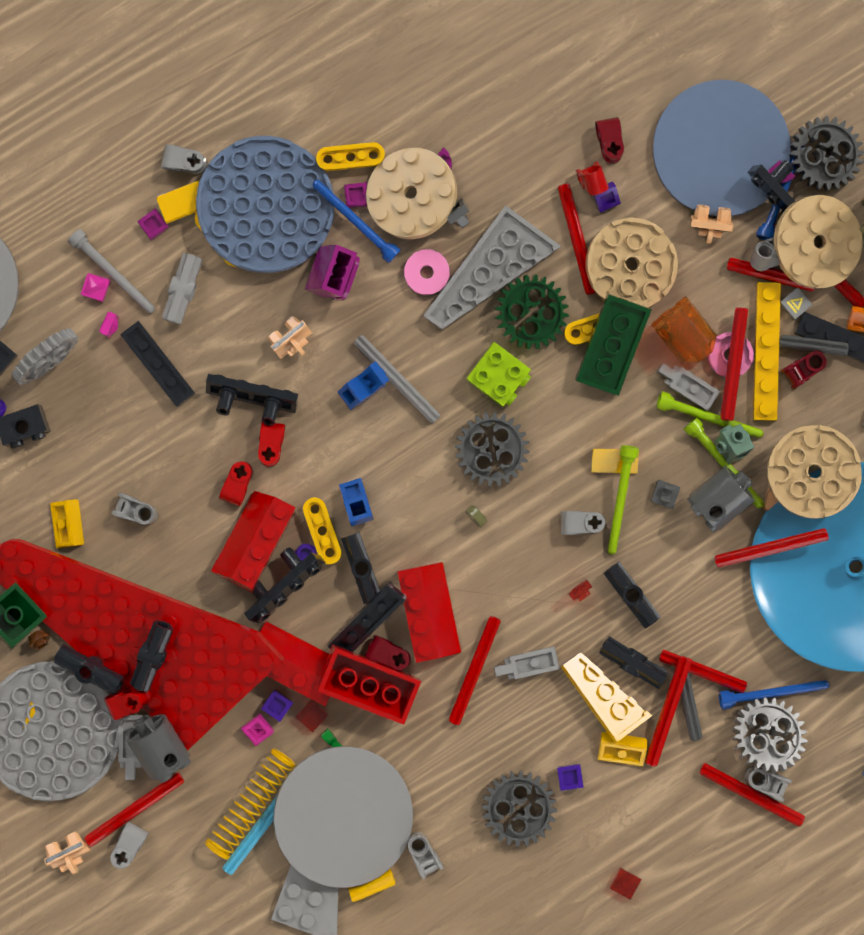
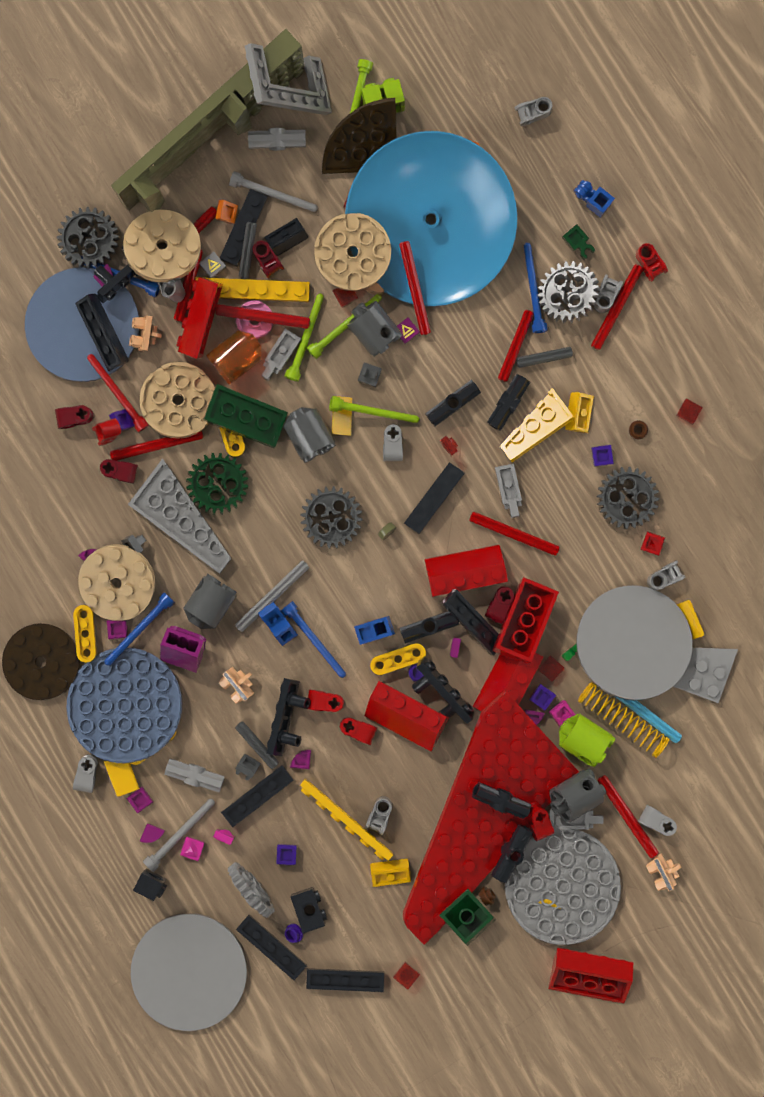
camera: 90 degrees left, 0 degrees up
(51, 237) = (150, 885): none -> black brick
(88, 399) = (286, 854): none -> dark purple plate
(113, 238) = (151, 833): none -> magenta tile
(135, 462) = (340, 815): none -> yellow plate
(193, 351) = (247, 766): none -> dark grey tile
(200, 416) = (301, 760): none -> magenta tile
(219, 362) = (256, 744): none -> dark grey axle
(225, 757) = (585, 739): none -> lime cylinder
(254, 696) = (535, 716): none -> magenta tile
(318, 81) = (20, 661): none -> dark brown plate
(336, 599) = (455, 647): none -> magenta tile
(378, 402) = (291, 611): none -> blue piece
(387, 303) = (209, 603): none -> dark grey cylinder
(417, 262) = (171, 570): bright pink tile -> none
(464, 839) = (653, 543): none -> red tile
(499, 375) = (270, 510): lime brick -> none
(516, 573) = (434, 498): none -> black slope
(545, 198) = (122, 470): none -> dark red piece
(592, 420) = (308, 433): none -> dark grey cylinder
(602, 828) = (642, 425): none -> reddish brown plate
(604, 218) = (139, 422): none -> red piece
(668, 711) = (548, 374): red axle -> none
(712, 171) = (101, 331): none -> black slope
(720, 539) = (408, 330): none -> magenta tile
(731, 288) = (200, 317): none -> red slope
(734, 443) = (328, 317): sand green brick -> none
(759, 463) = (344, 297): none -> clear red plate
(806, 836) = (651, 263): none -> red piece
(831, 392) = (286, 237): none -> black slope
(833, 745) = (577, 239): none -> dark green plate

